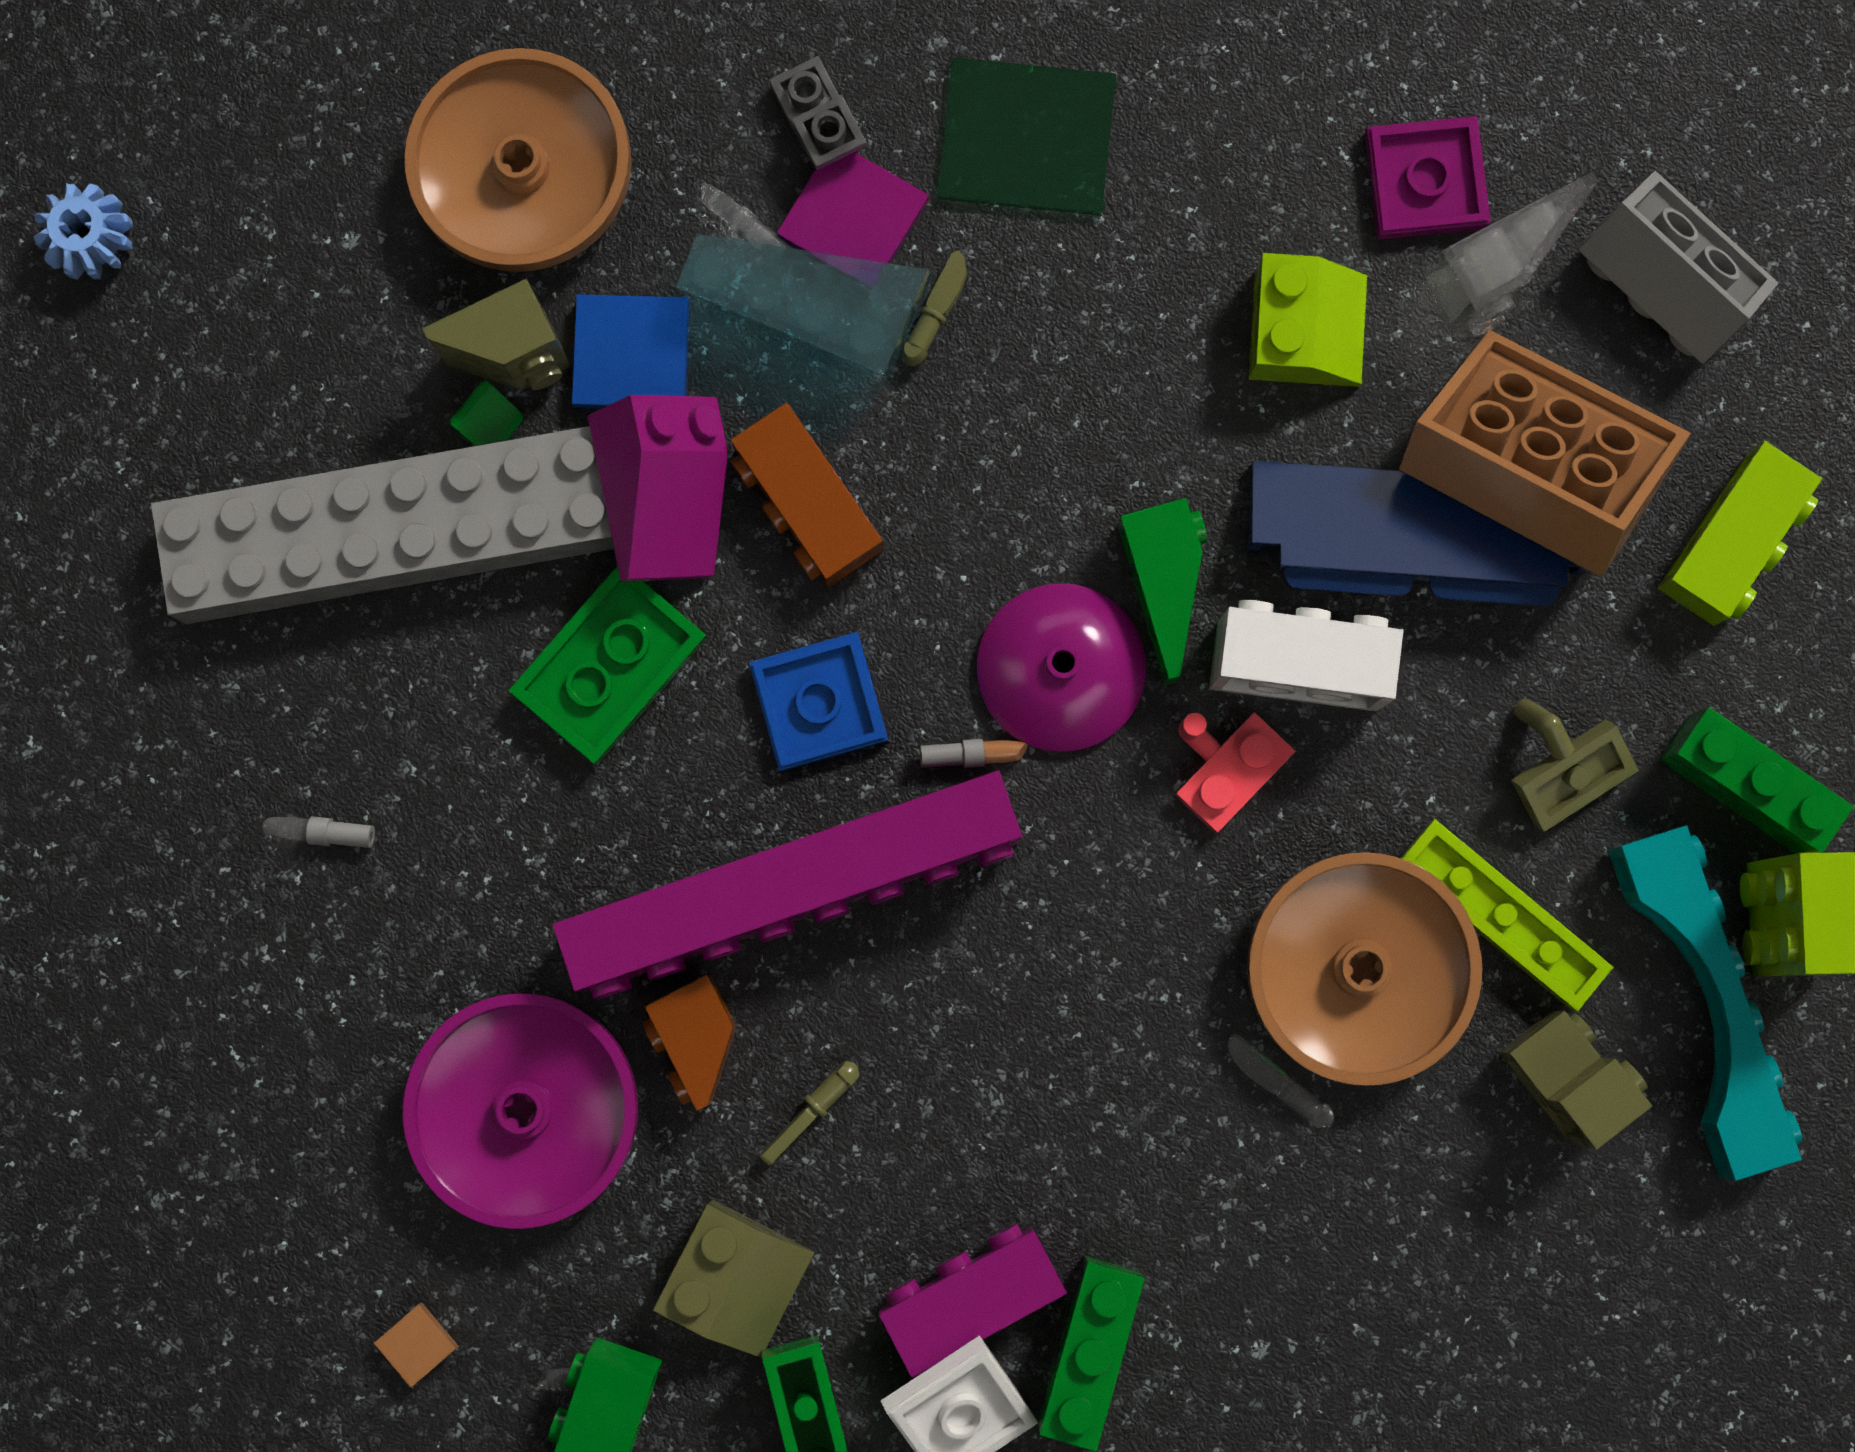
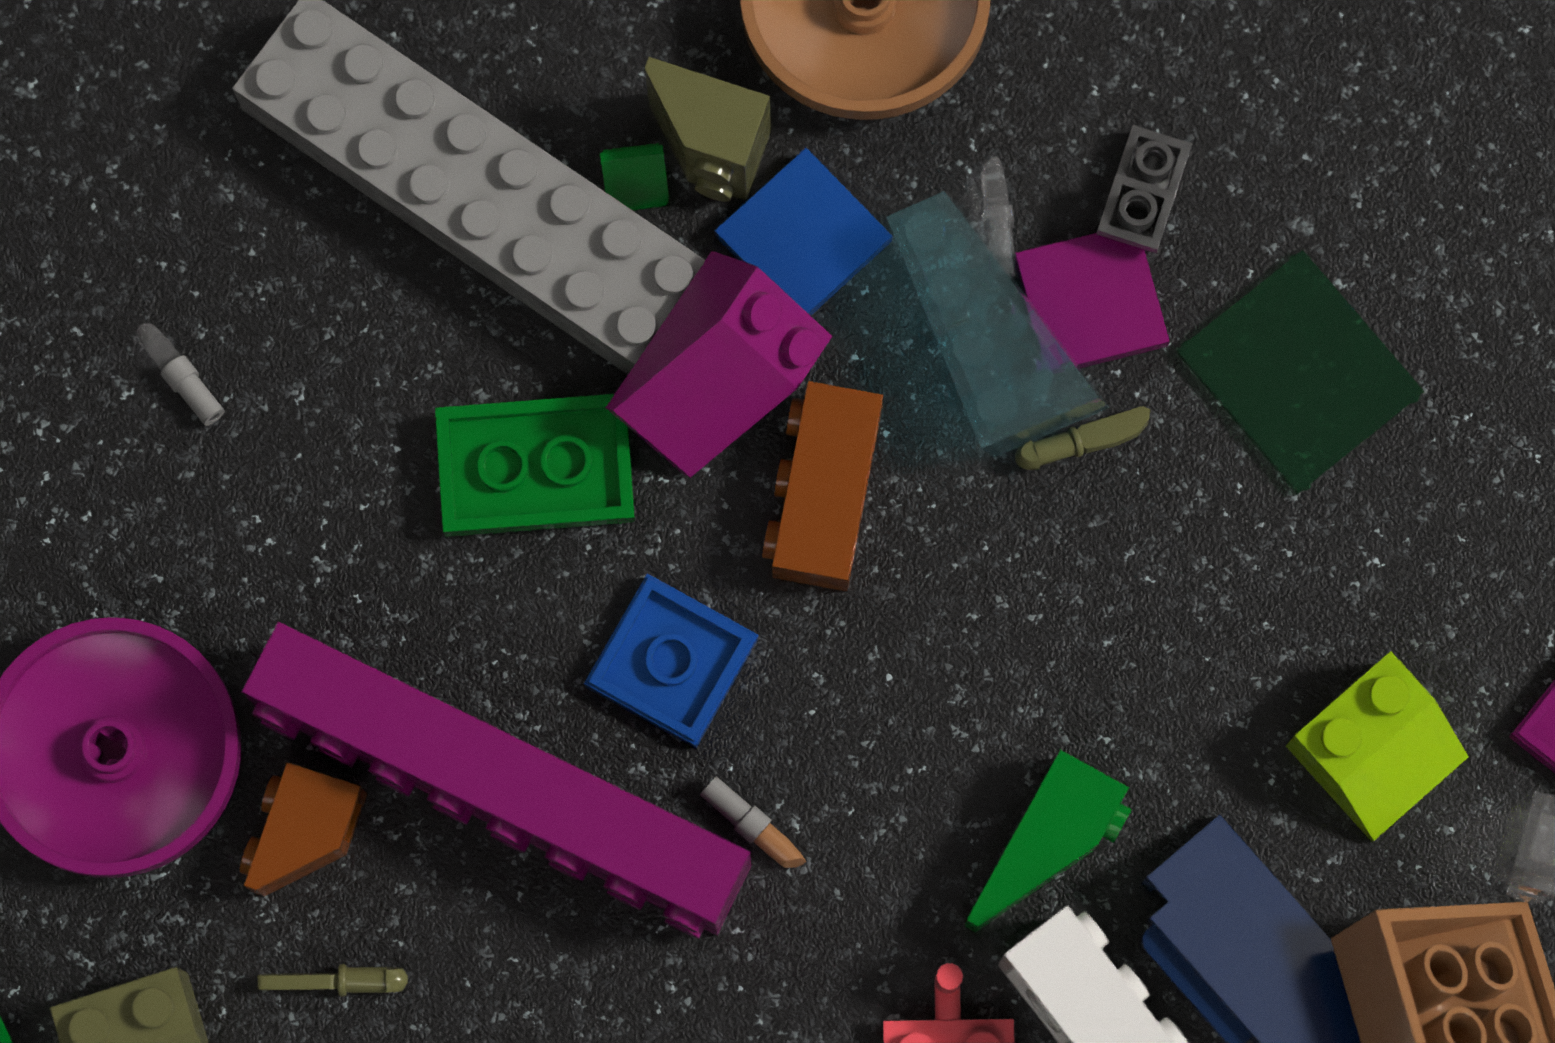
camera: 45 degrees right, 5 degrees down
(1053, 707) = (886, 873): magenta dish -> none

